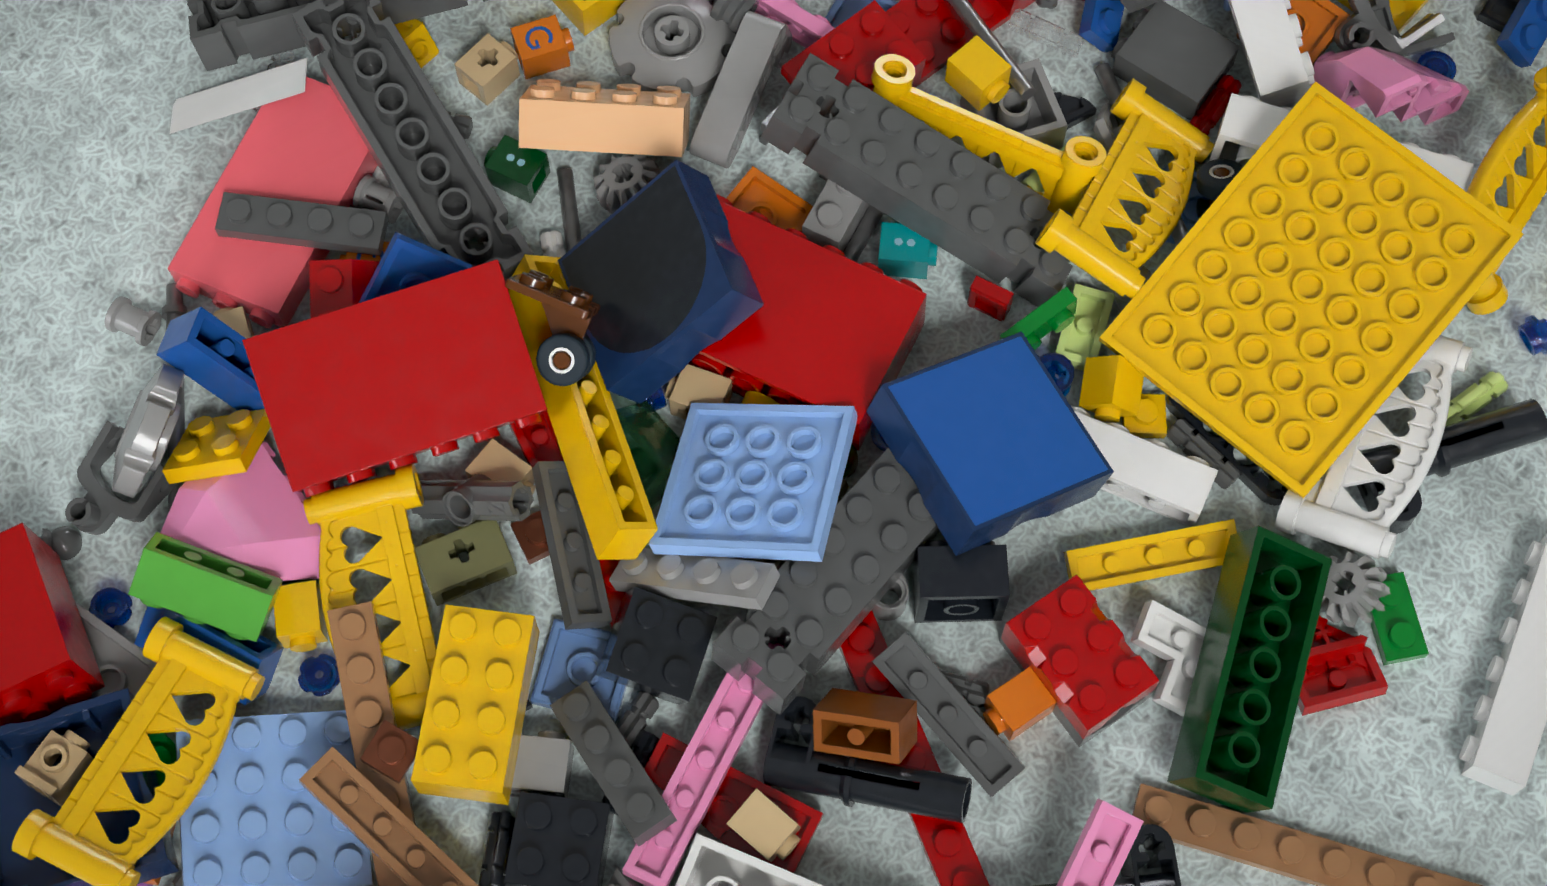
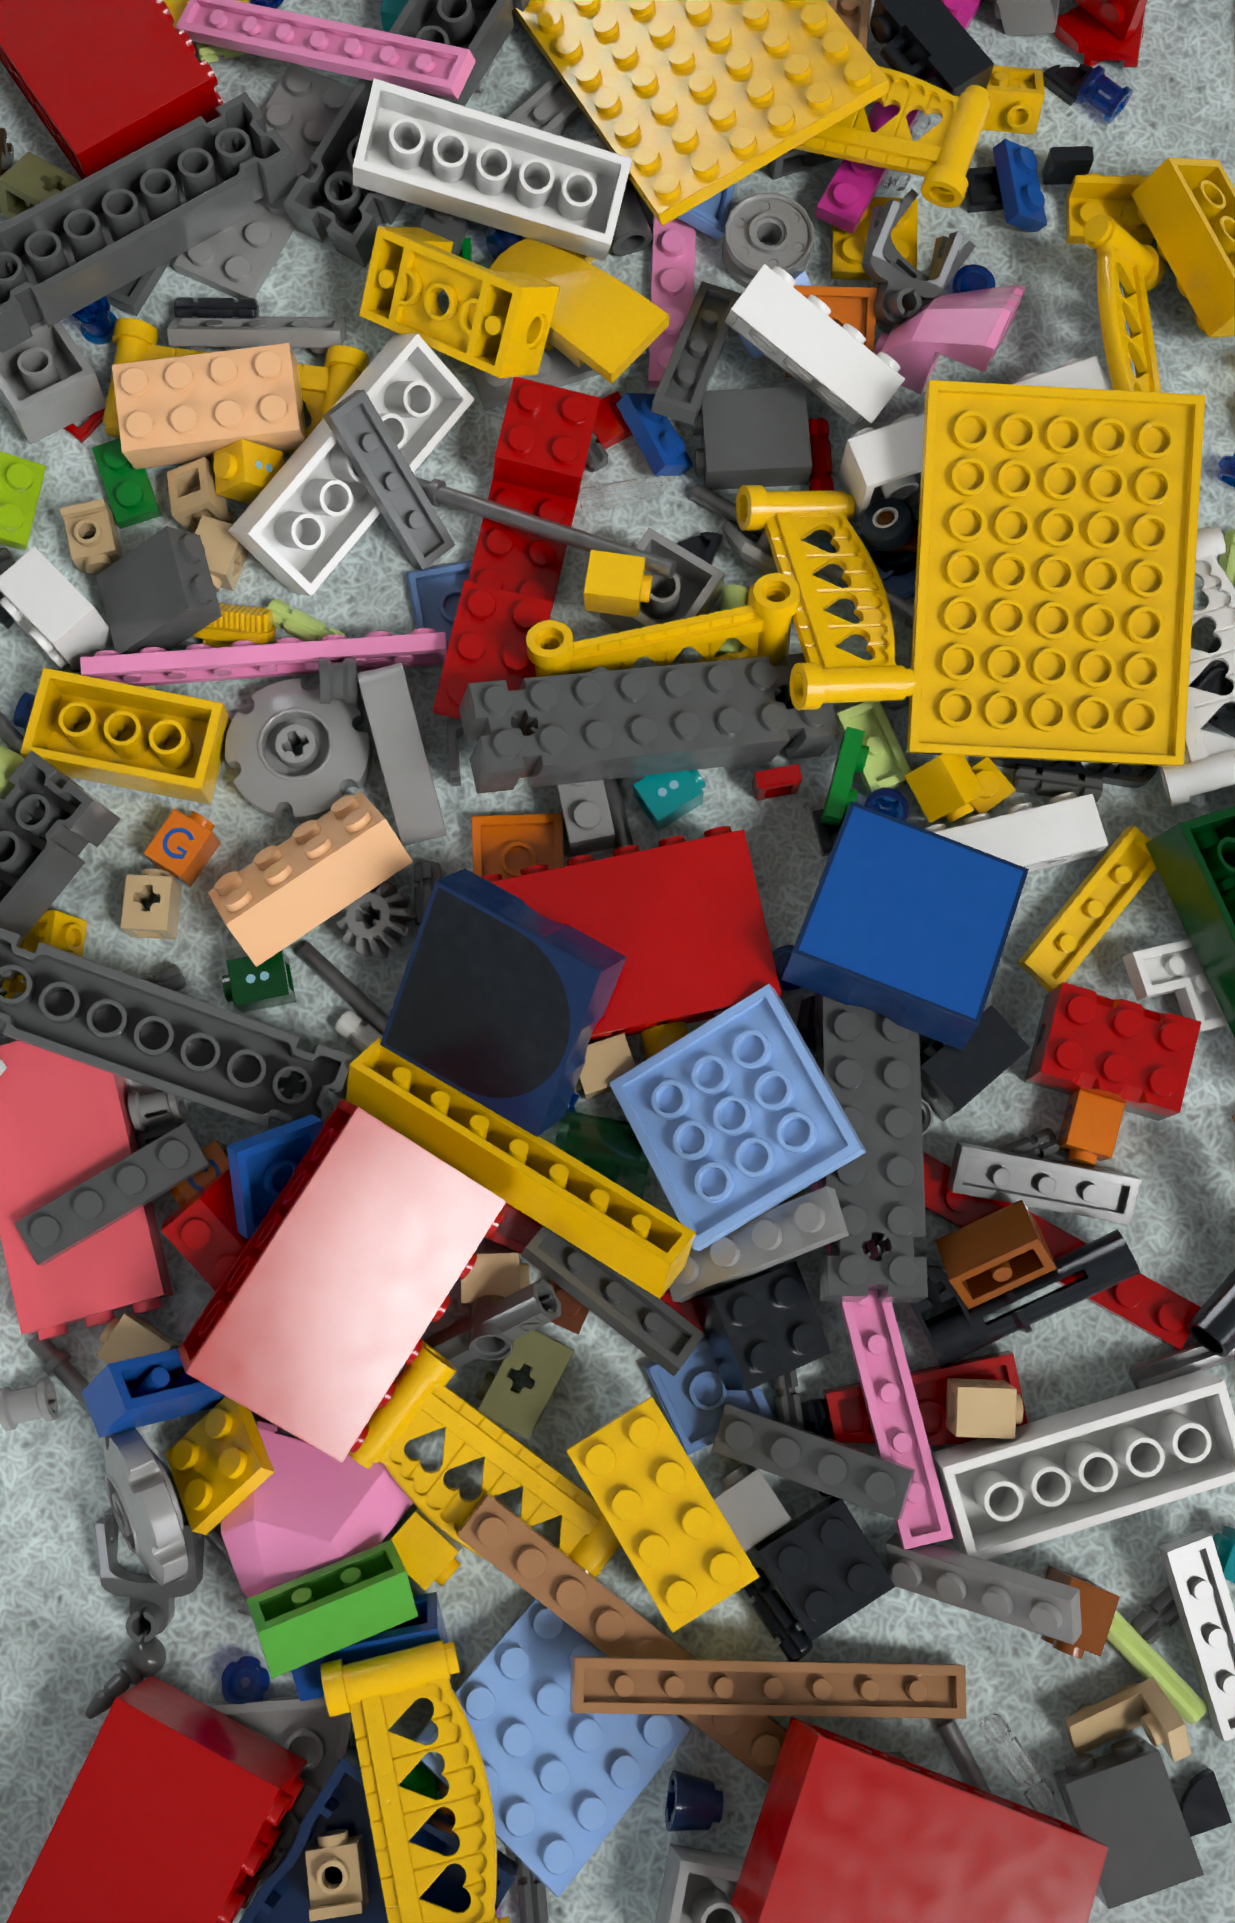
camera: 40 degrees left, 10 degrees up
(323, 685) = (470, 1586): clear blue plate -> none
(391, 752) = (622, 1612): copper plate -> none
(569, 351) = (456, 1099): reddish brown plate -> none

